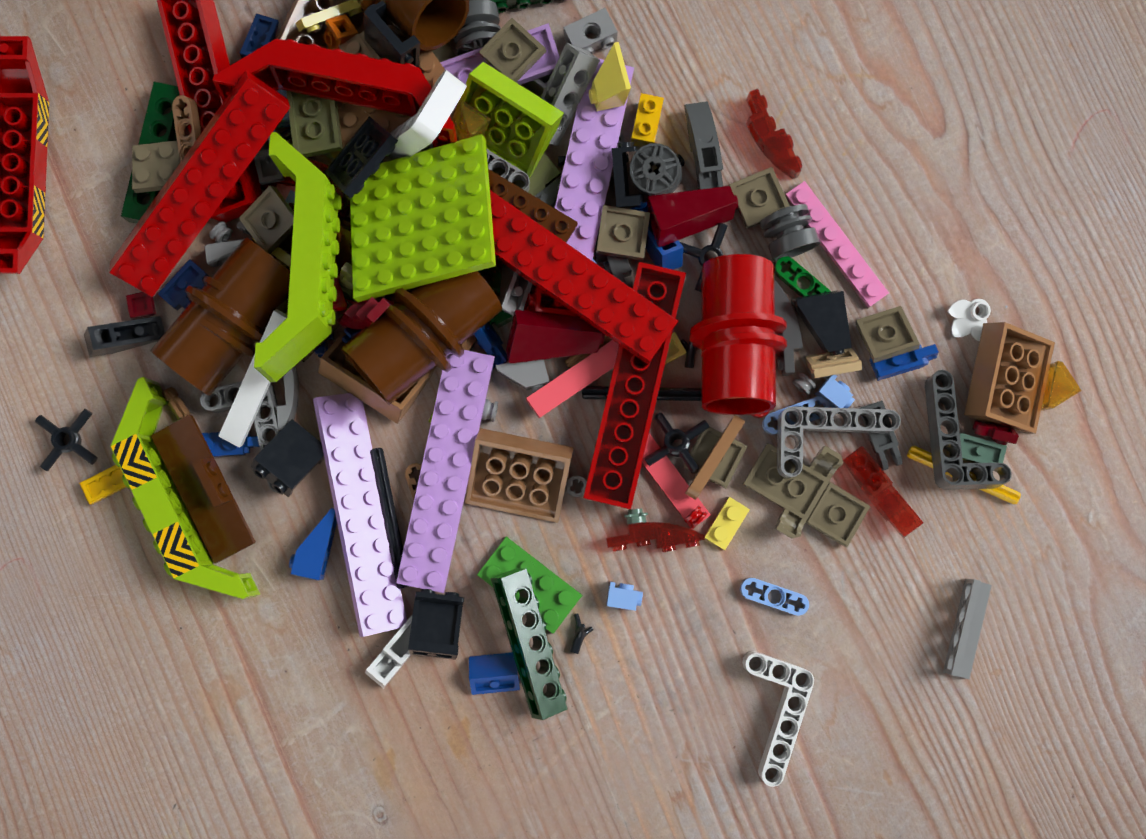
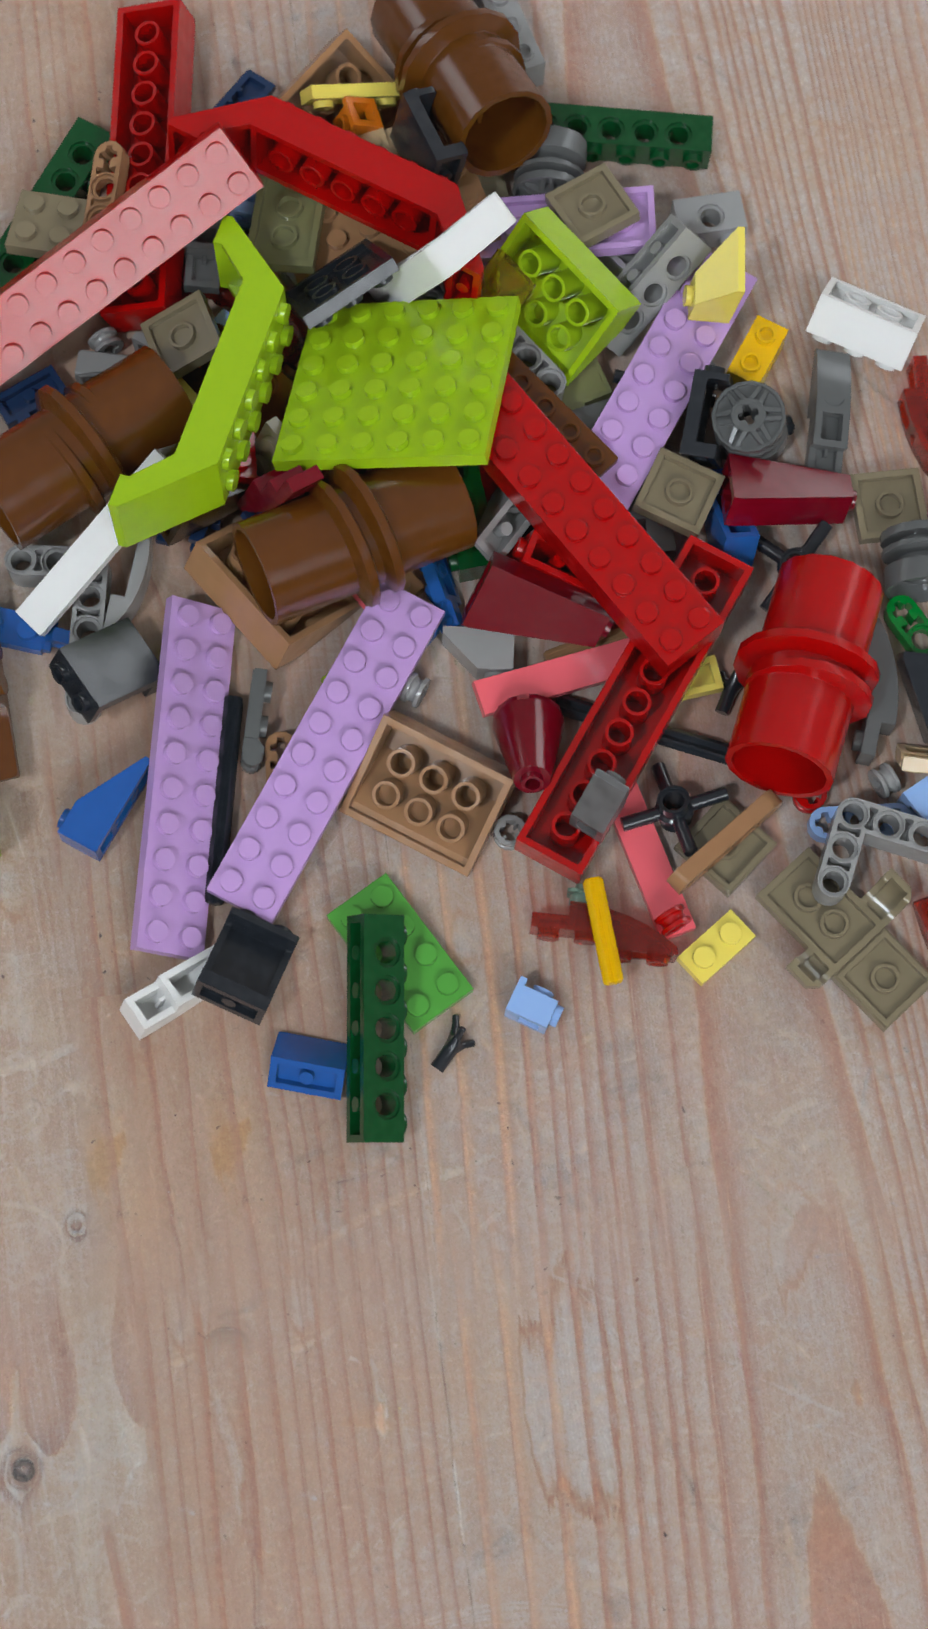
camera: 10 degrees right, 10 degrees down
(395, 463) = (256, 724): none -> dark grey hinge
(573, 428) = (529, 739): none -> dark red cone
(631, 464) = (600, 804): none -> flat silver slope
(654, 539) = (603, 931): none -> yellow axle
(712, 76) = (865, 324): none -> white slope
(783, 712) = (728, 1244): white beam -> none
(793, 596) = (773, 1068): light blue beam -> none

